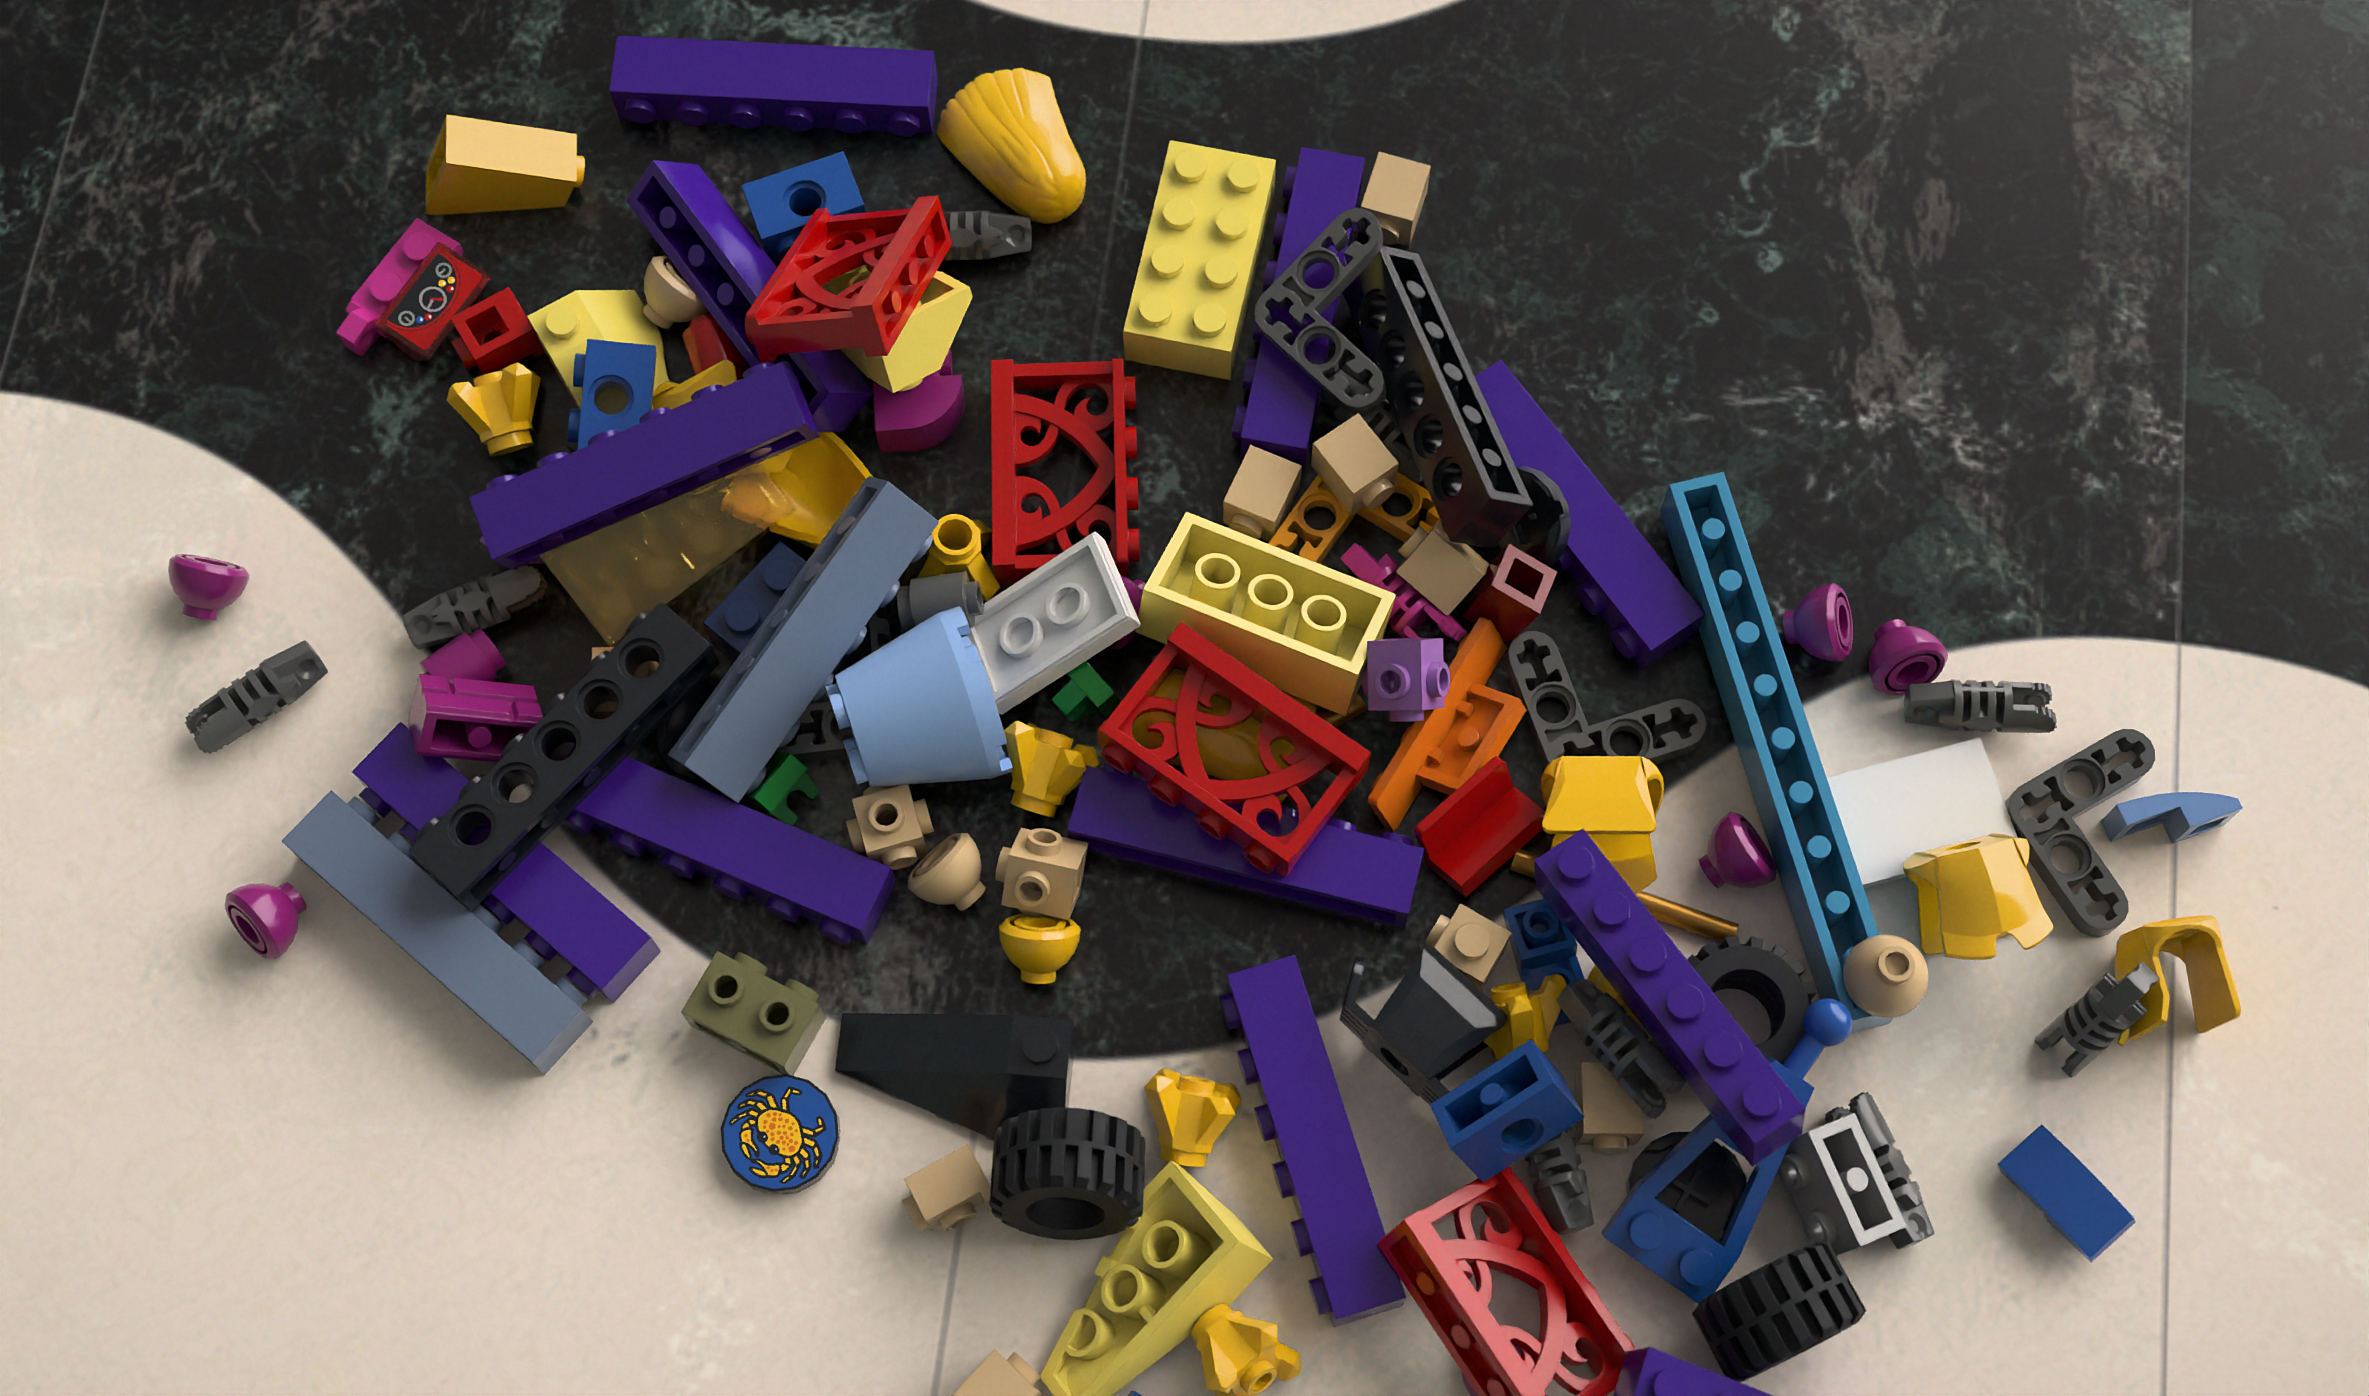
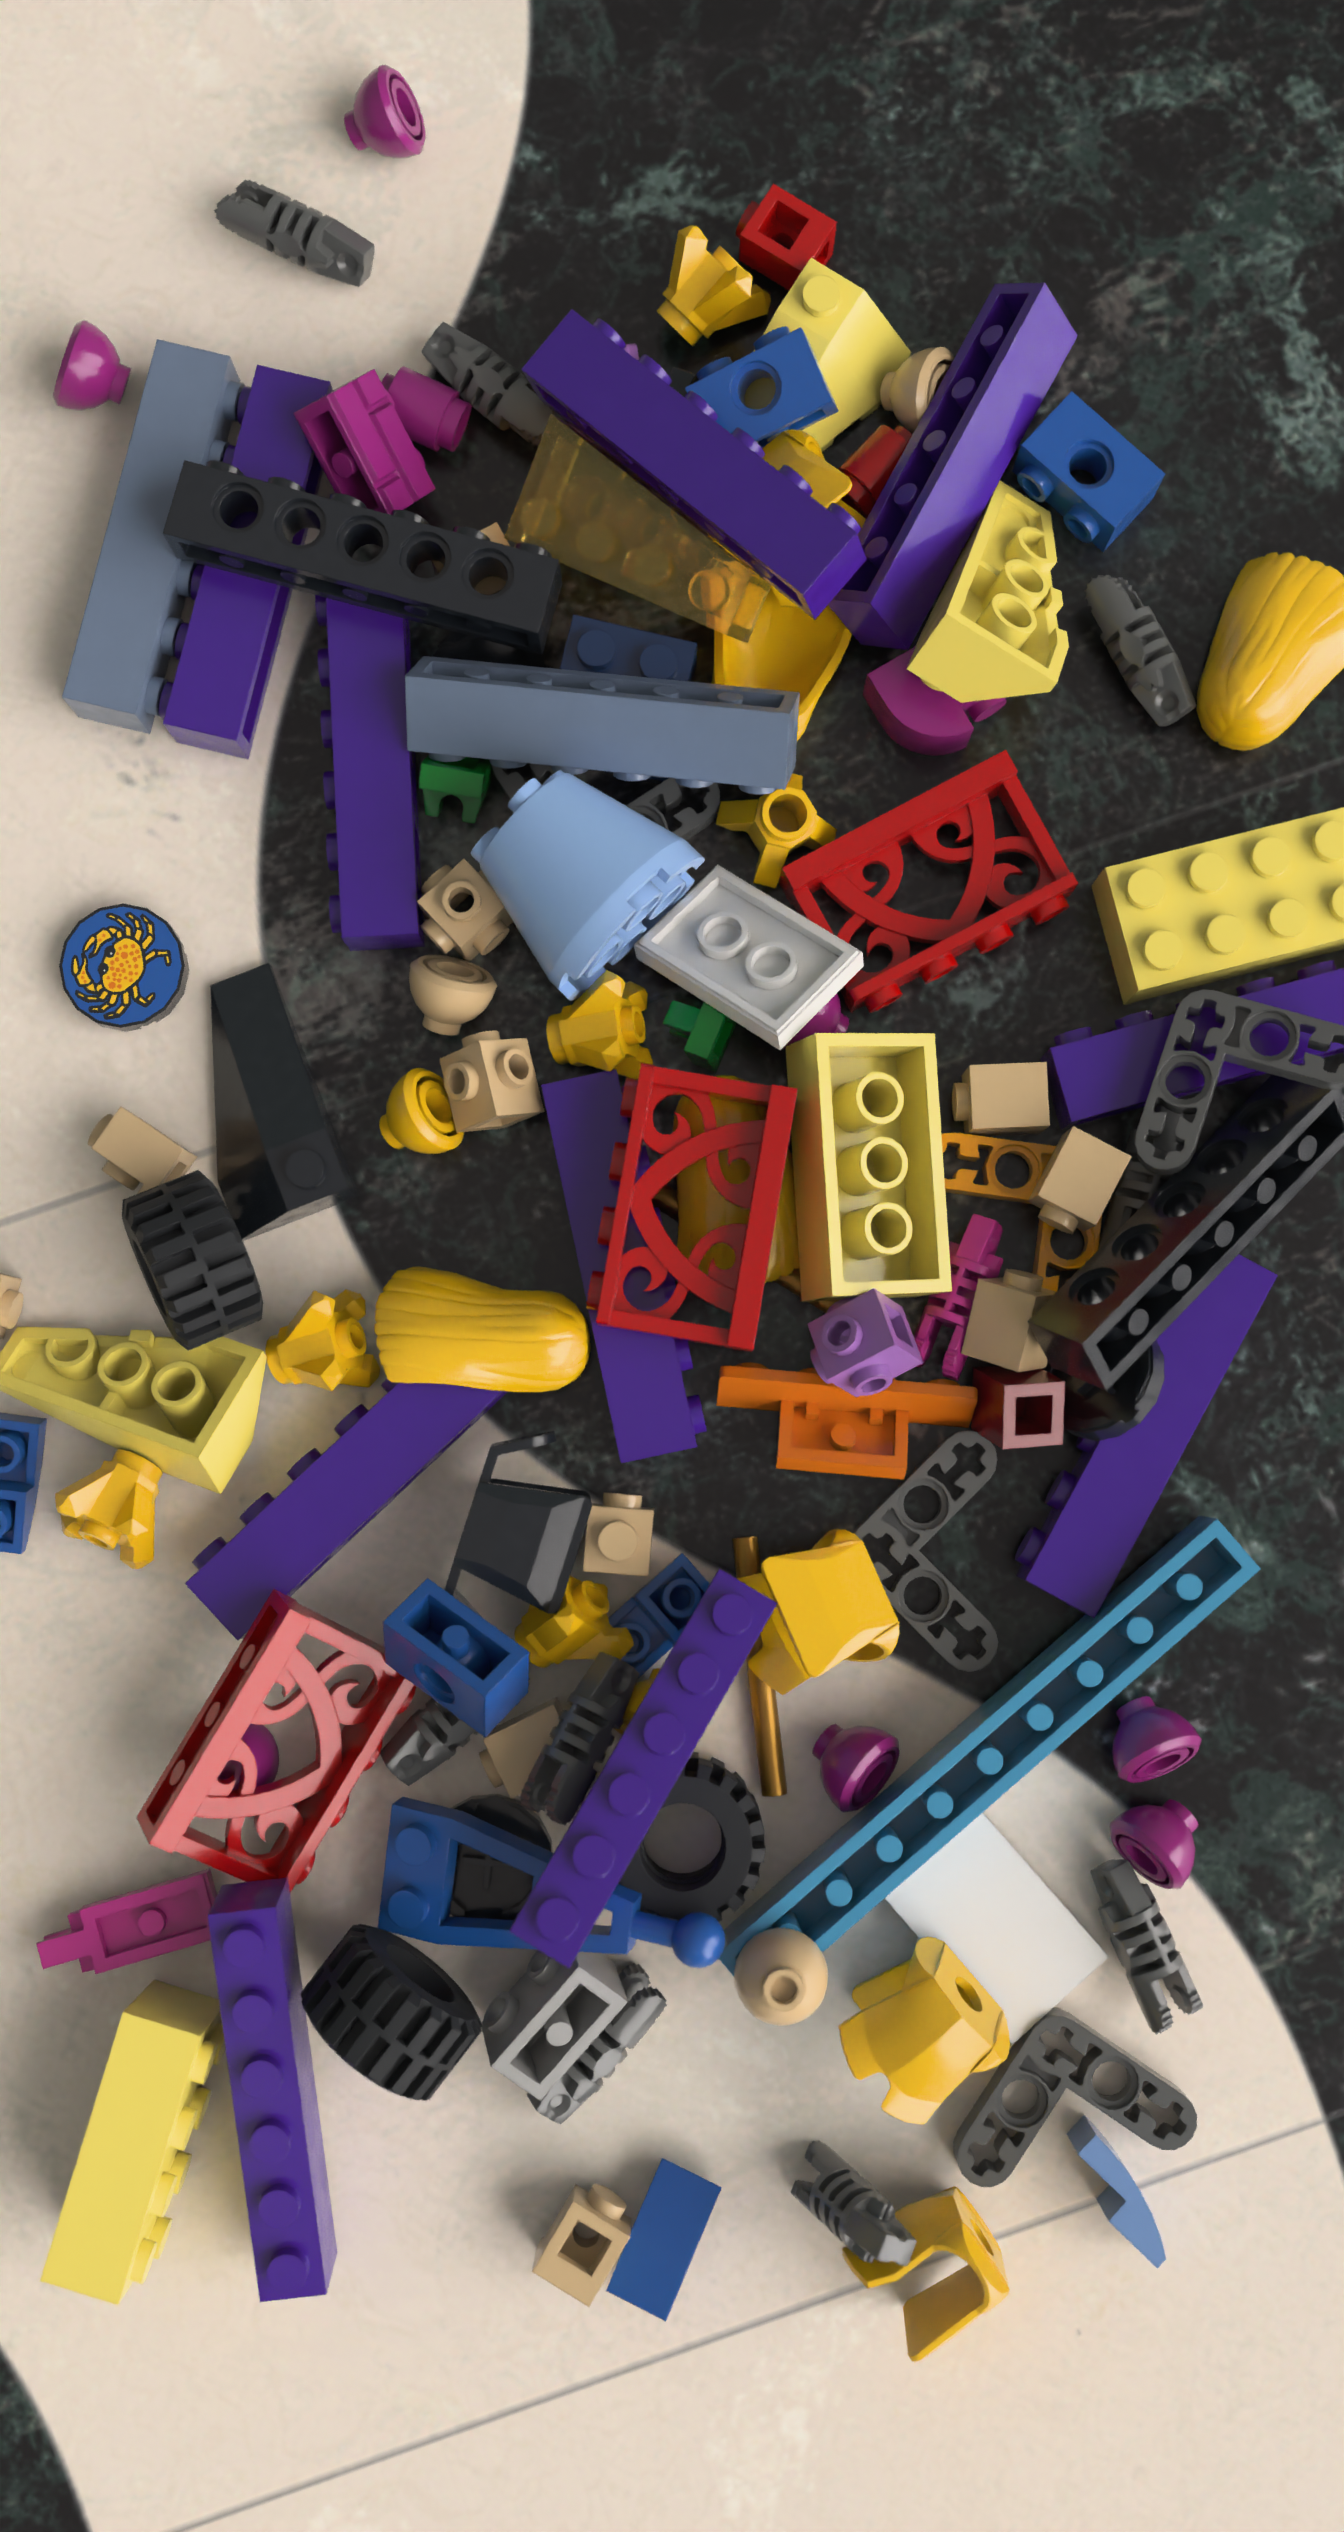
camera: 65 degrees right, 15 degrees up
(385, 282) = (793, 117): dark pink hinge -> none
(436, 291) = (795, 155): slope -> none
(500, 167) = (970, 140): yellow slope -> none
(755, 1012) = (221, 880): olive brick -> none
(774, 85) = (1211, 364): dark purple brick -> none
(898, 250) = (1063, 595): red fence -> none
(936, 594) = (716, 834): dark grey brick -> none
(1246, 976) = (478, 1335): none -> yellow hair
(1478, 828) = (753, 1491): red panel -> none
(2062, 1259) = (581, 2263): none -> tan brick

